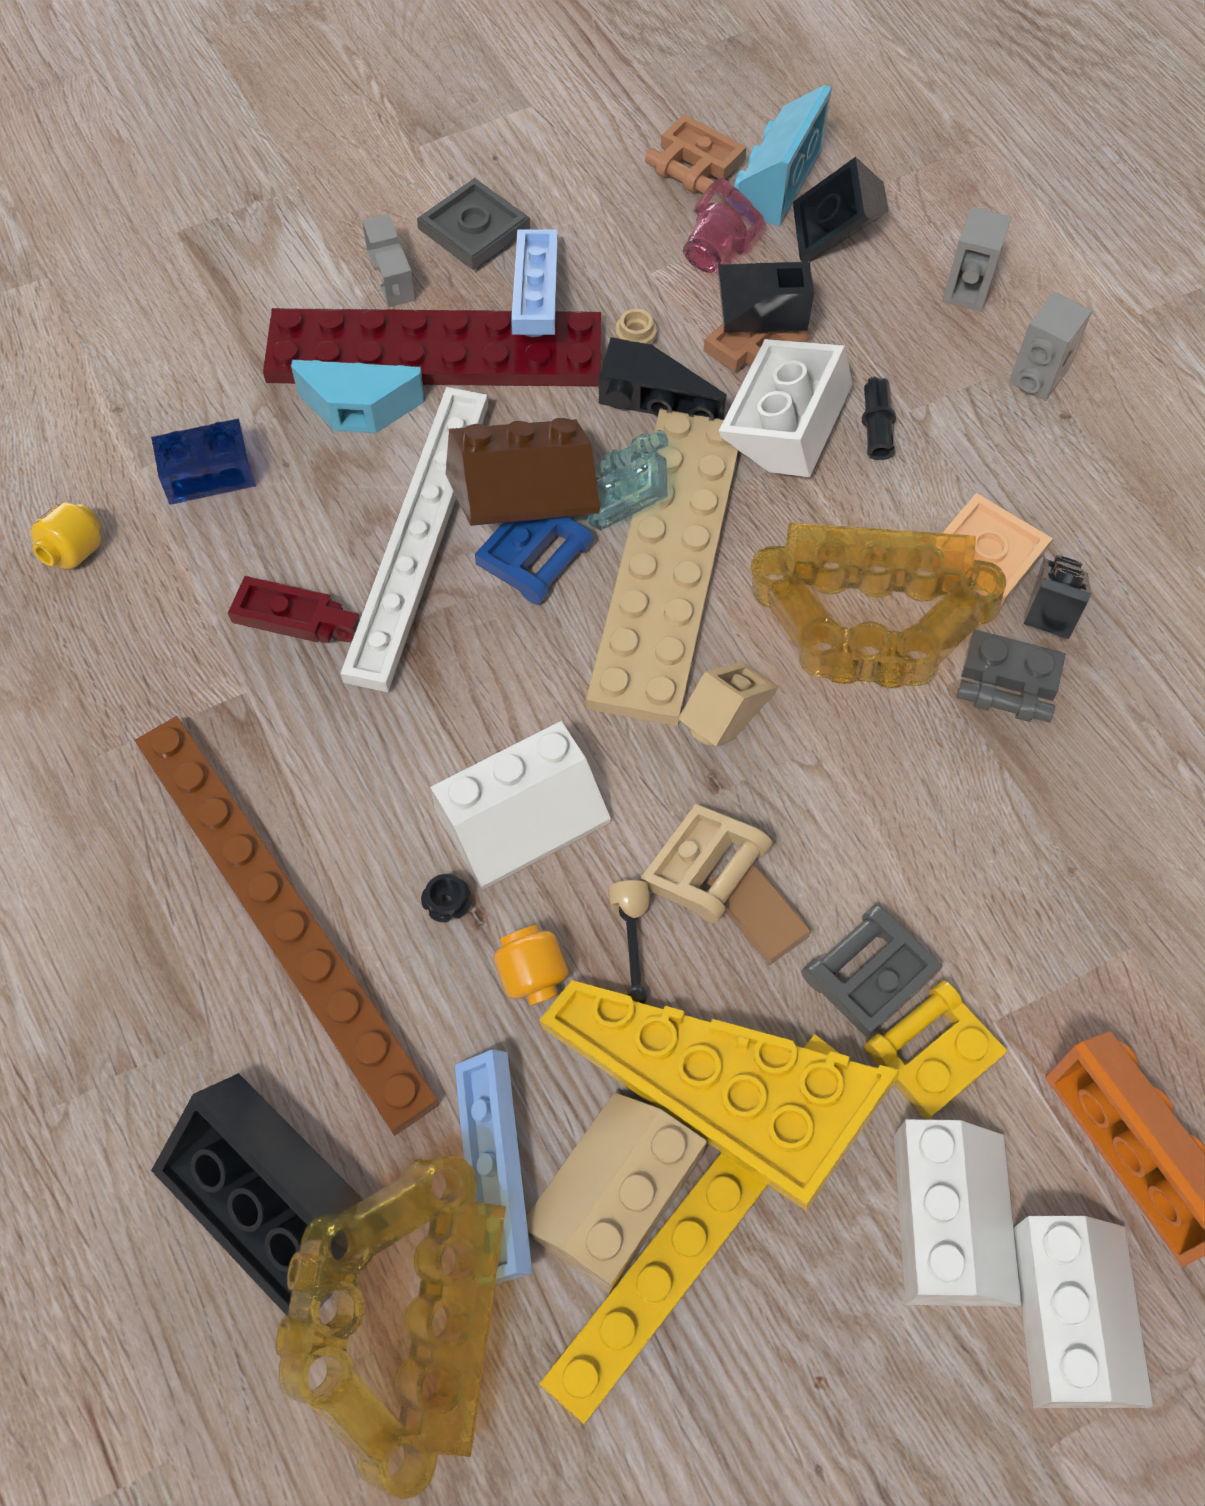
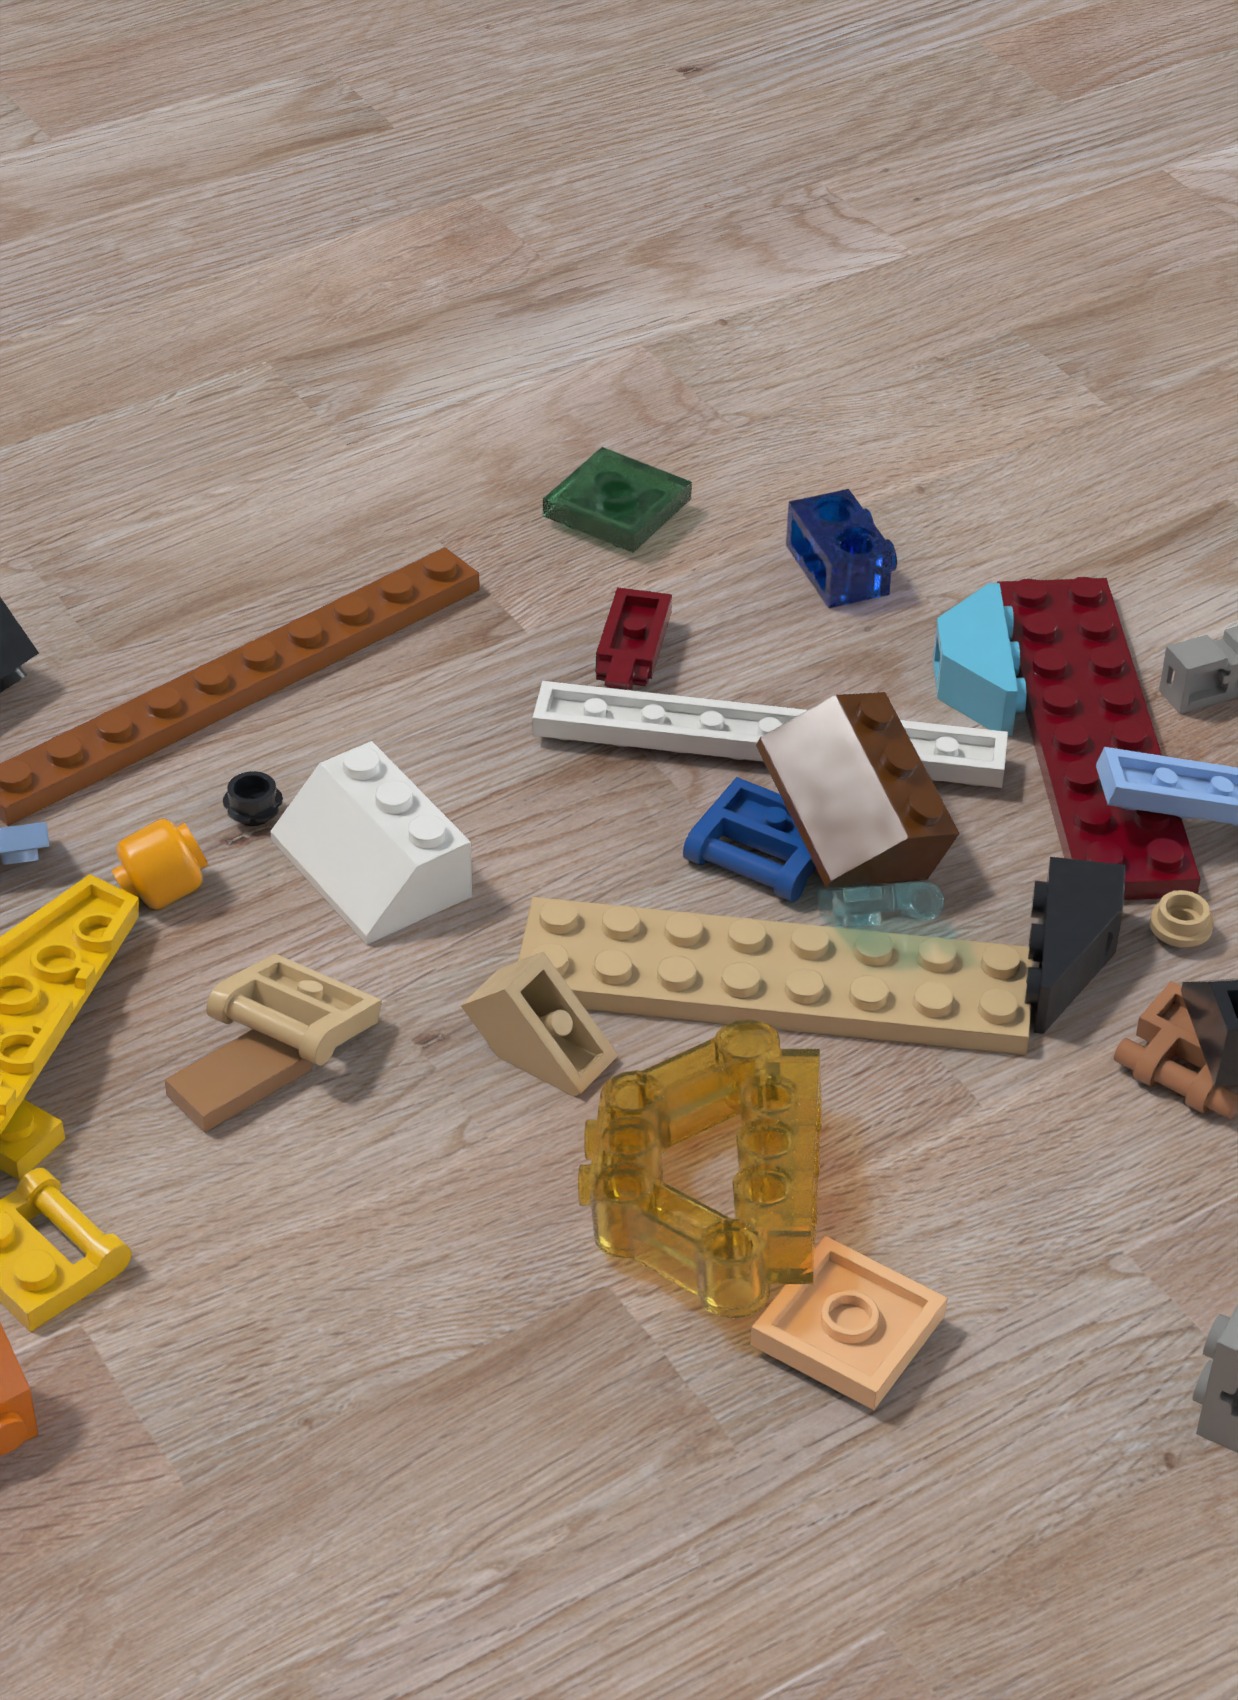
camera: 85 degrees right, 20 degrees down
(65, 535) = (709, 460): yellow head -> none
(96, 607) = (617, 499): none -> clear green plate
(629, 902) = (240, 950): hinge -> none
(788, 405) = (1057, 1071): white slope -> none
(879, 419) = (1081, 1192): black axle -> none
(883, 982) = (134, 1192): dark grey plate -> none
(1012, 666) = (644, 1354): dark grey plate -> none
(1058, 596) = (757, 1382): black slope -> none

